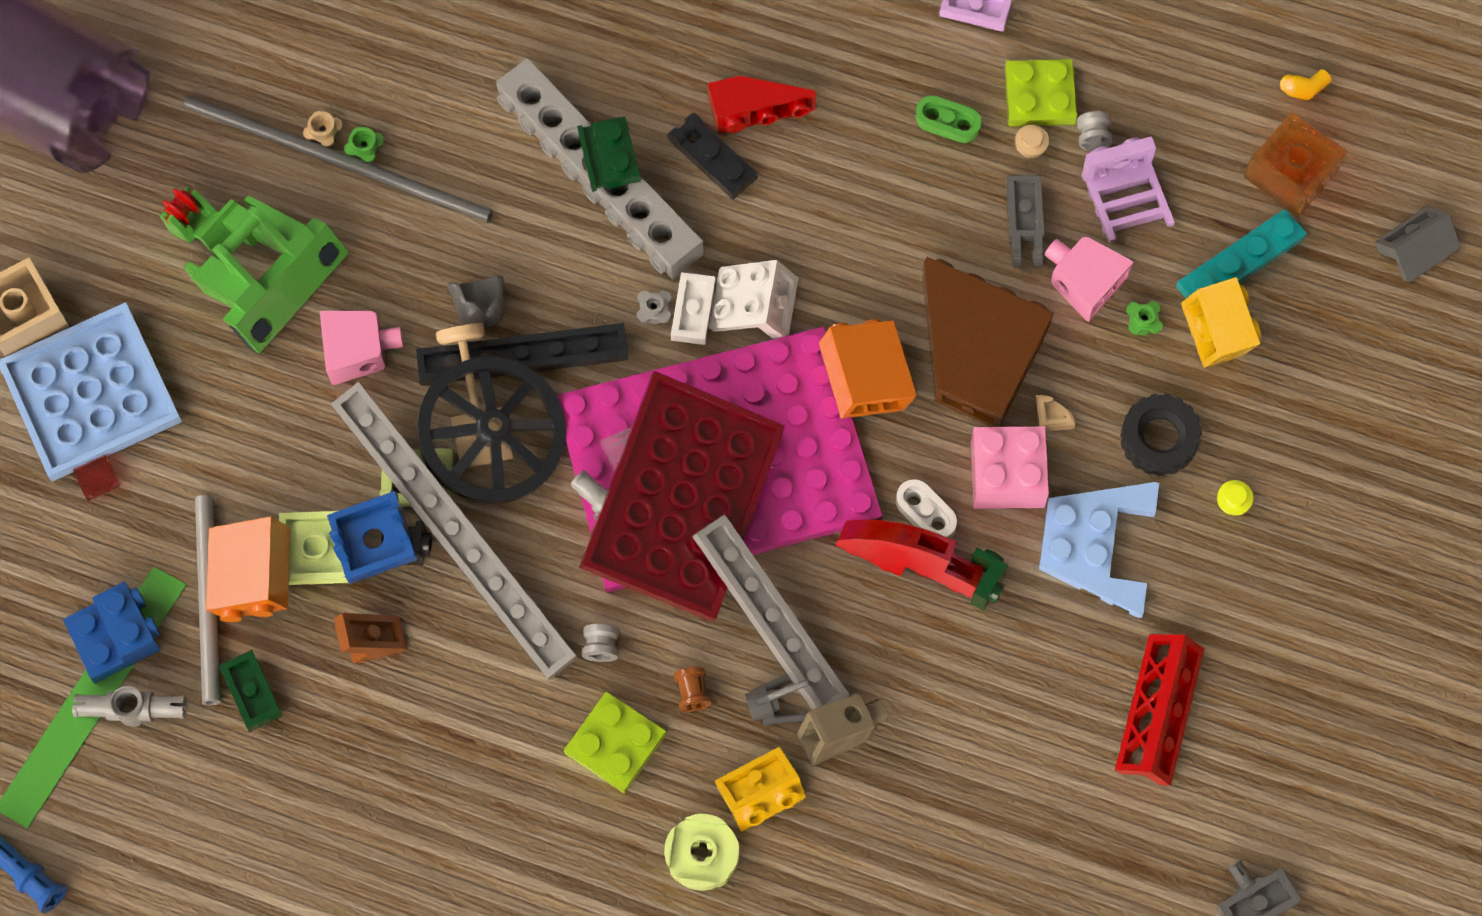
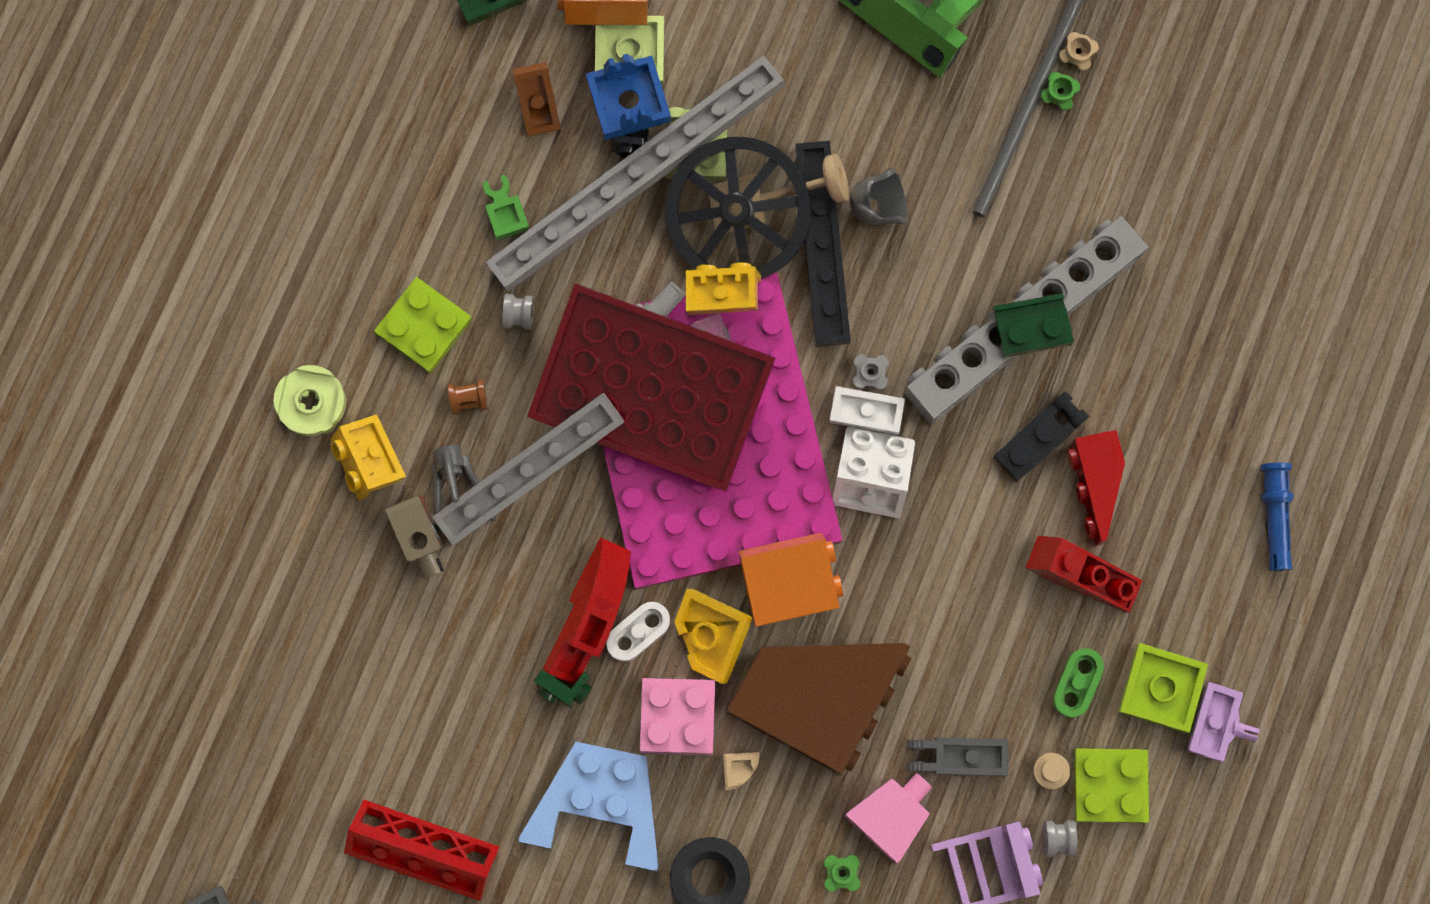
camera: 90 degrees right, 10 degrees up
(355, 344) = (837, 83): bright pink torso -> none
(495, 662) = (505, 213): none -> bright green plate
(577, 435) = (722, 289): none -> yellow bracket
(842, 117) = (1083, 572): none -> red slope
(924, 440) = (711, 634): none -> yellow plate
(947, 48) = (1163, 688): none -> lime plate

